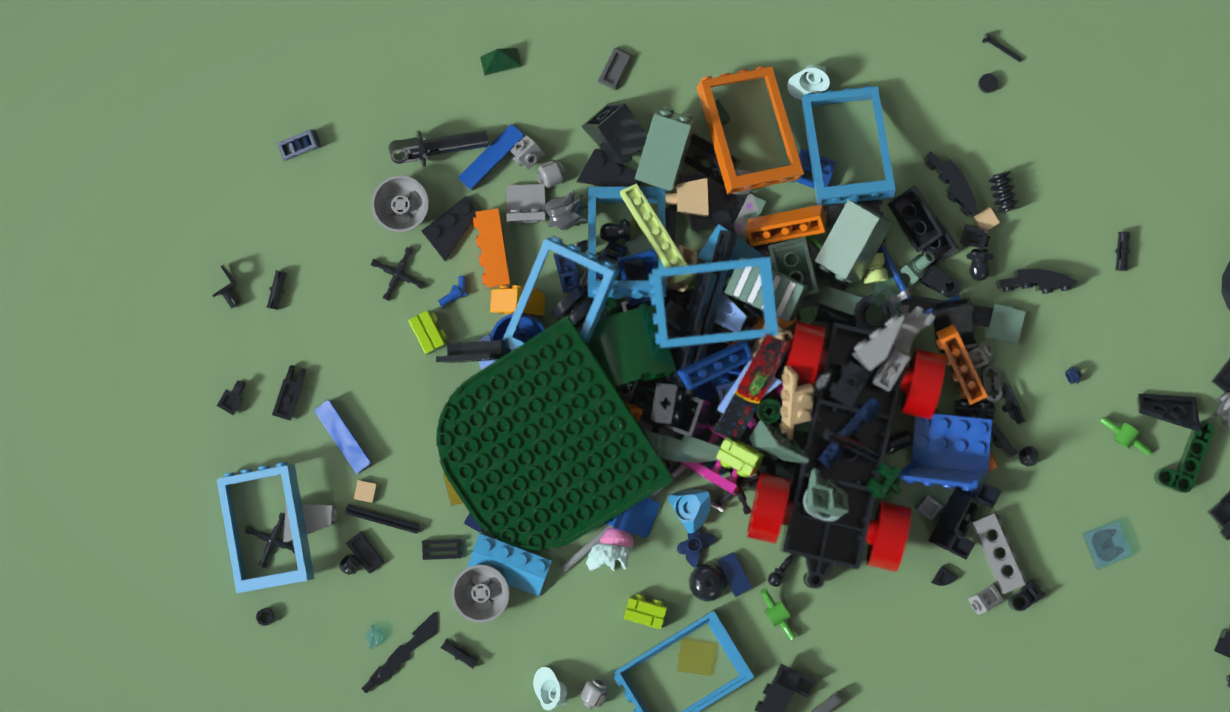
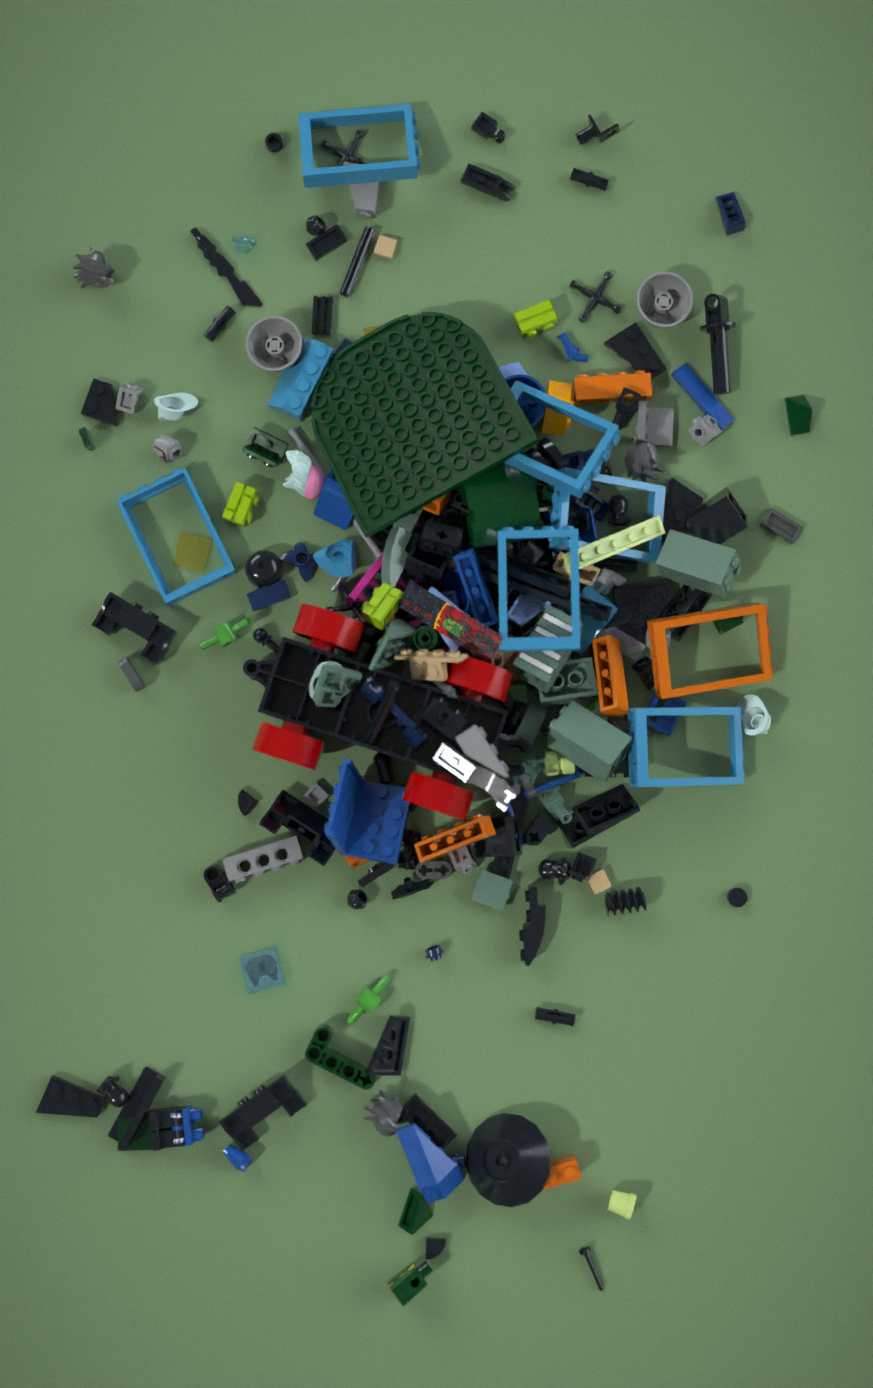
camera: 90 degrees right, 0 degrees up
(342, 436) = (441, 231): slope -> none
(474, 352) = (511, 357): black fence -> none
(513, 234) = (623, 409): none -> black bracket
(551, 173) = (681, 452): light grey head -> none
(585, 592) = (265, 447): none -> dark green bracket
(688, 237) = (606, 580): none -> light grey head
(690, 198) = (646, 585): tan torso -> none
(774, 192) = (644, 670): none -> black bracket
(888, 484) = (335, 739): dark green hips -> none
(959, 189) = (632, 856): black slope -> none
(985, 599) = (219, 841): light grey bracket -> none
(999, 46) = (772, 914): black piece -> none

